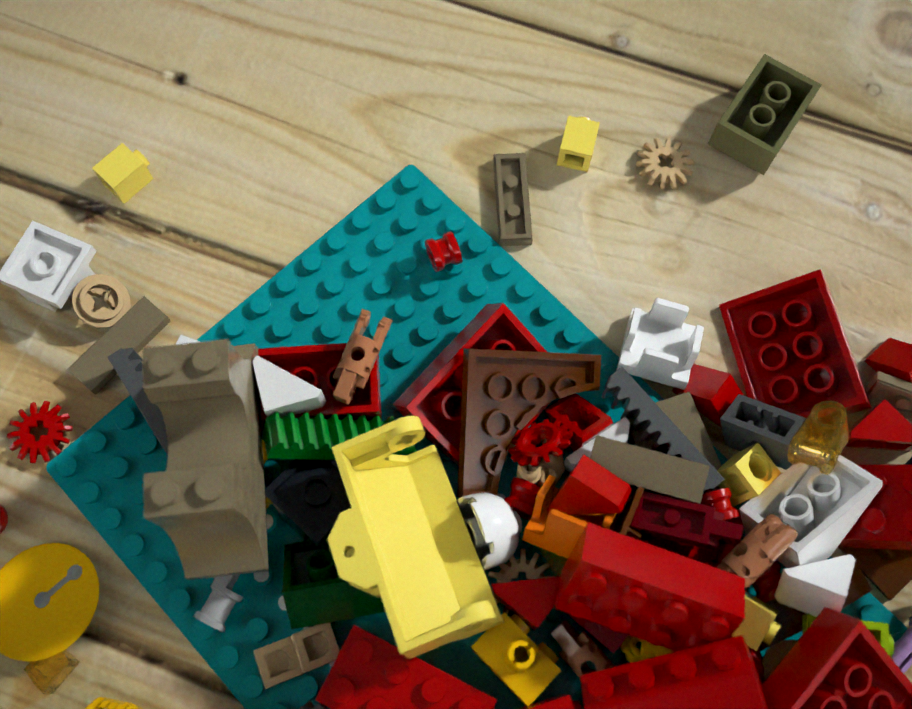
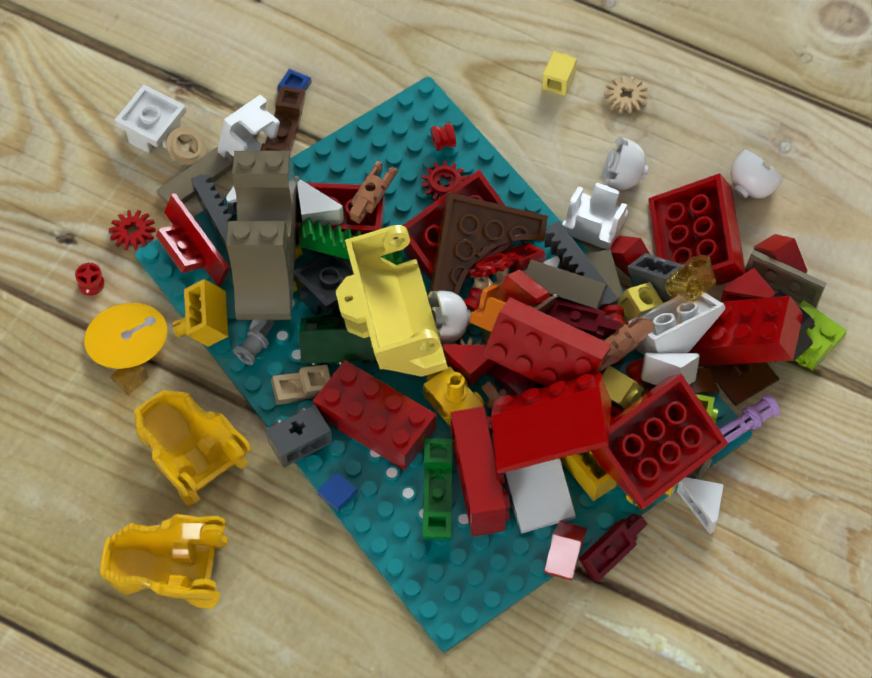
camera: 10 degrees right, 10 degrees down
(108, 447) = (189, 244): none -> red bracket
(123, 172) = (210, 60): light yellow brick -> none
(144, 567) = (204, 314): none -> yellow brick
(171, 274) = (245, 124): none -> white panel
(230, 263) = (288, 112): none -> reddish brown slope
(238, 193) = (295, 80): none -> blue tile
(456, 301) = (439, 172): none -> red gear
(512, 199) = (503, 109): dark tan tile -> none
(683, 264) = (624, 165): none -> white cylinder
(763, 114) = (707, 65): olive brick -> none
(853, 262) = (753, 177): none -> white cylinder

